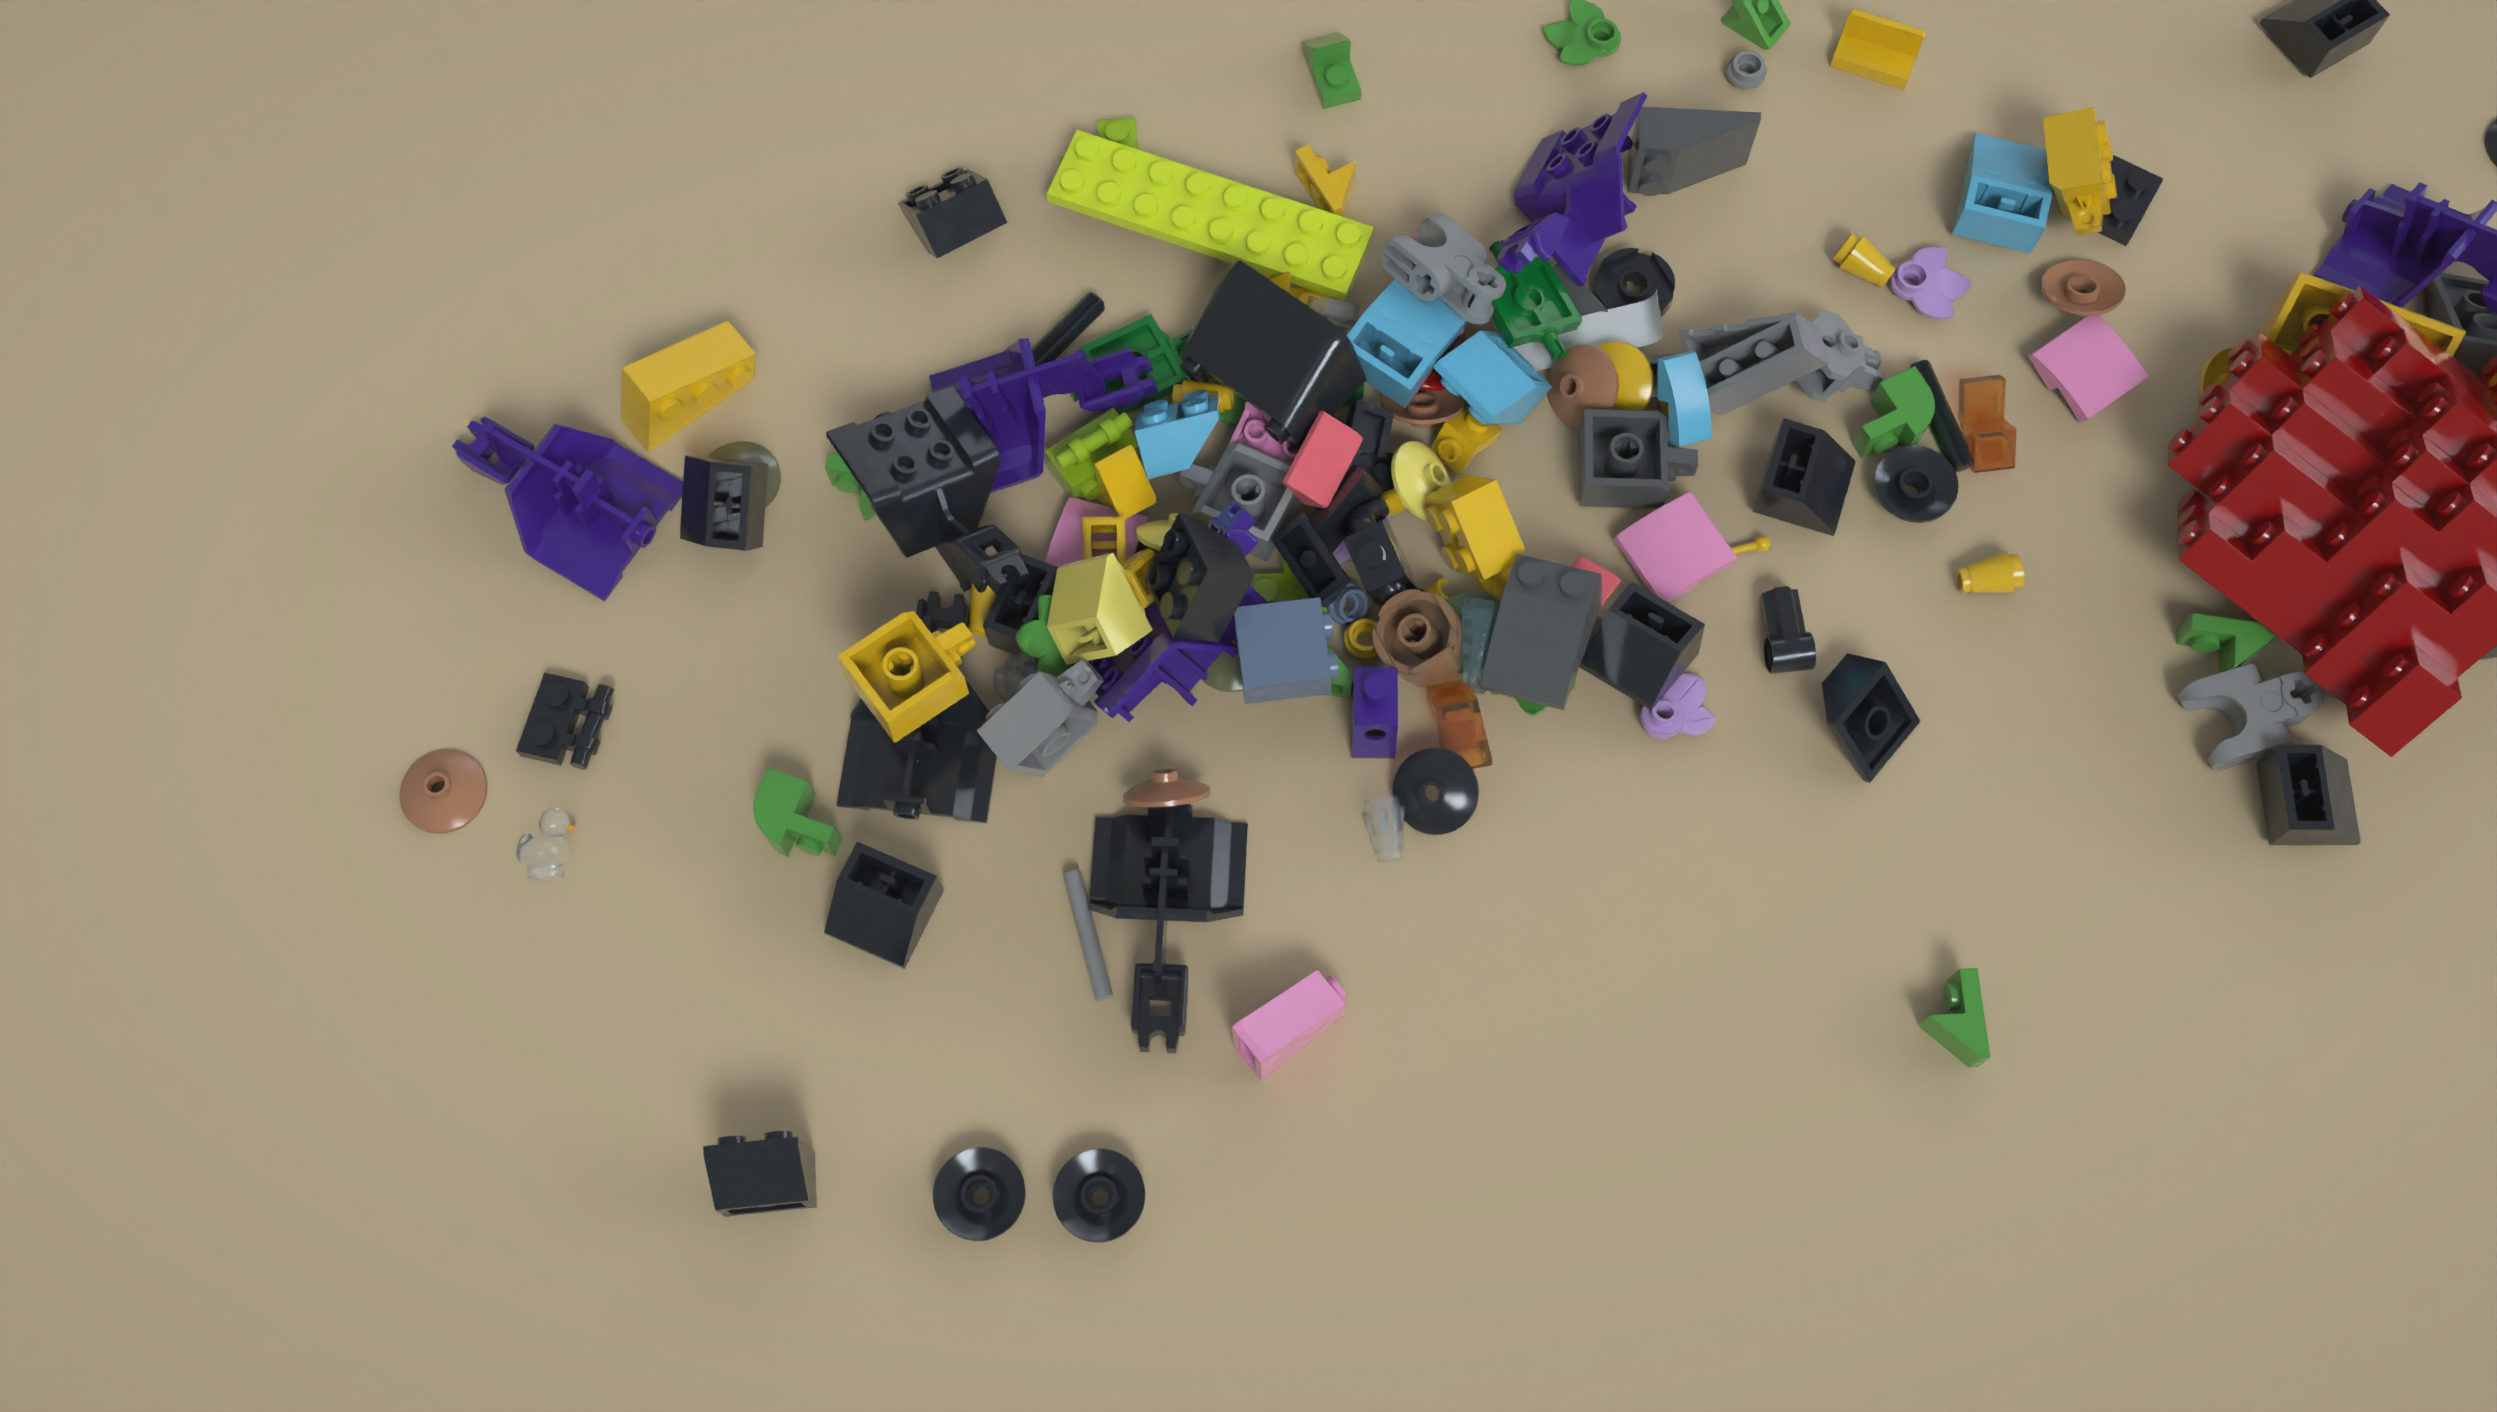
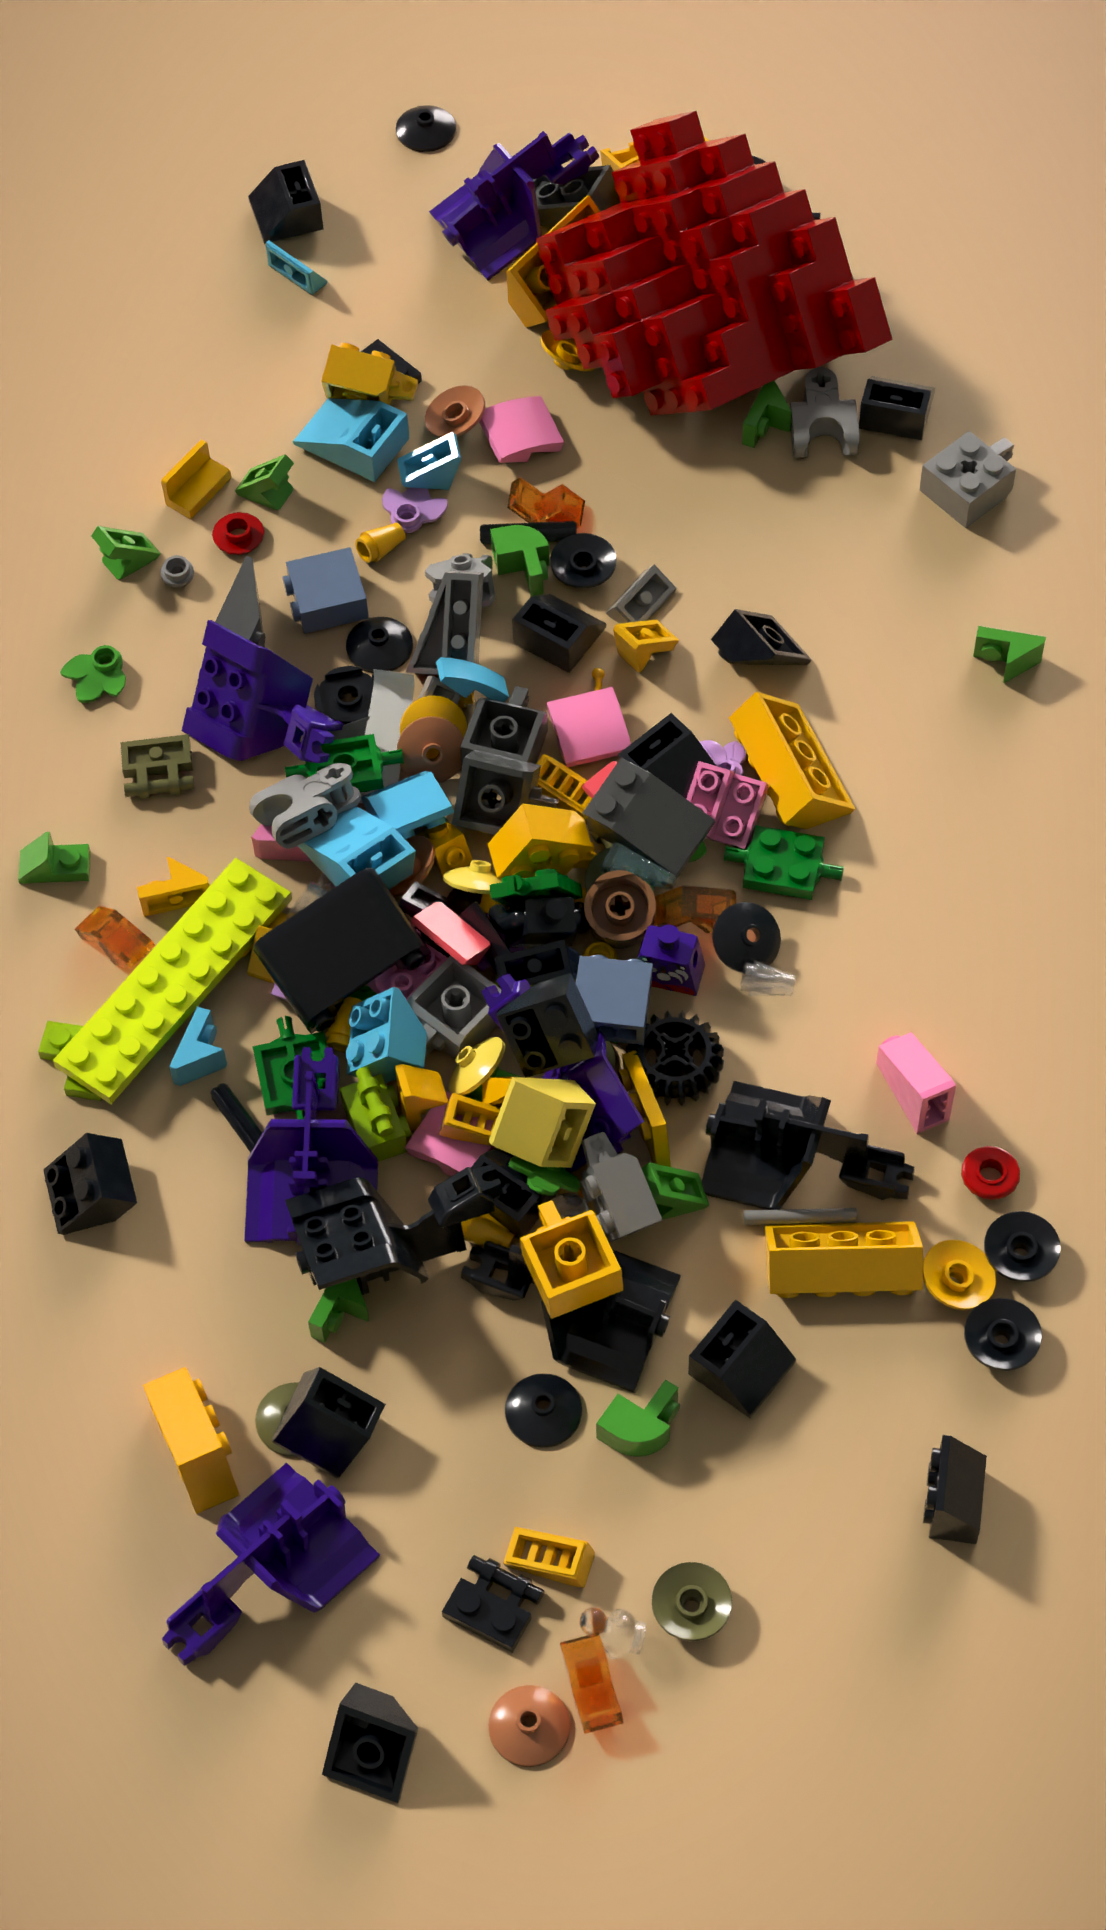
camera: 75 degrees left, 10 degrees down
(394, 635) = (371, 1743): none -> black slope
(487, 841) = (591, 1683): none -> clear orange slope
(576, 907) = (691, 1583): none -> olive dish
(619, 791) = (581, 1563): none -> yellow slope
(808, 732) = (544, 1426): none -> black dish
(1038, 1152) = (964, 1263): none -> yellow dish
(1040, 991) = (843, 1258): none -> yellow slope
(1079, 784) = (675, 1190): none -> bright green slope
(1129, 259) = (195, 1053): none -> medium azure slope
(1155, 736) = (654, 1126): none -> yellow wing
(1166, 790) = (701, 1122): nougat dish -> none
(1192, 1118) = (994, 1158): none -> red piece
(1226, 728) = (674, 1043): none -> black gear
(1250, 147) = (116, 936): none -> clear orange slope
(1407, 533) = (545, 884): none -> green plate
(1492, 121) = (157, 757): none -> olive plate
(1539, 468) = (512, 778): none -> dark grey hinge
(1558, 813) = (783, 862): none -> green plate
(1591, 518) = (559, 772): none -> yellow slope
(1609, 722) = (730, 800): none -> bright pink slope
(1702, 788) = (790, 761): none -> yellow slope
(1708, 307) = (379, 654): none -> black dish
(1768, 221) = (325, 590): none -> sand blue brick
(1786, 640) = (689, 677): black piece -> none
(1821, 129) = (240, 543): none -> red piece
(1822, 577) = (640, 640): none -> yellow slope
(1889, 567) = (642, 597): none -> light grey slope
(1901, 126) = (268, 483): none -> bright green slope
(1990, 279) = (432, 464): none -> medium azure slope
(1992, 575) = (671, 535): yellow cone -> none
(2225, 915) = (969, 477): none -> light grey hinge
(2236, 64) = (294, 269): none -> medium azure slope

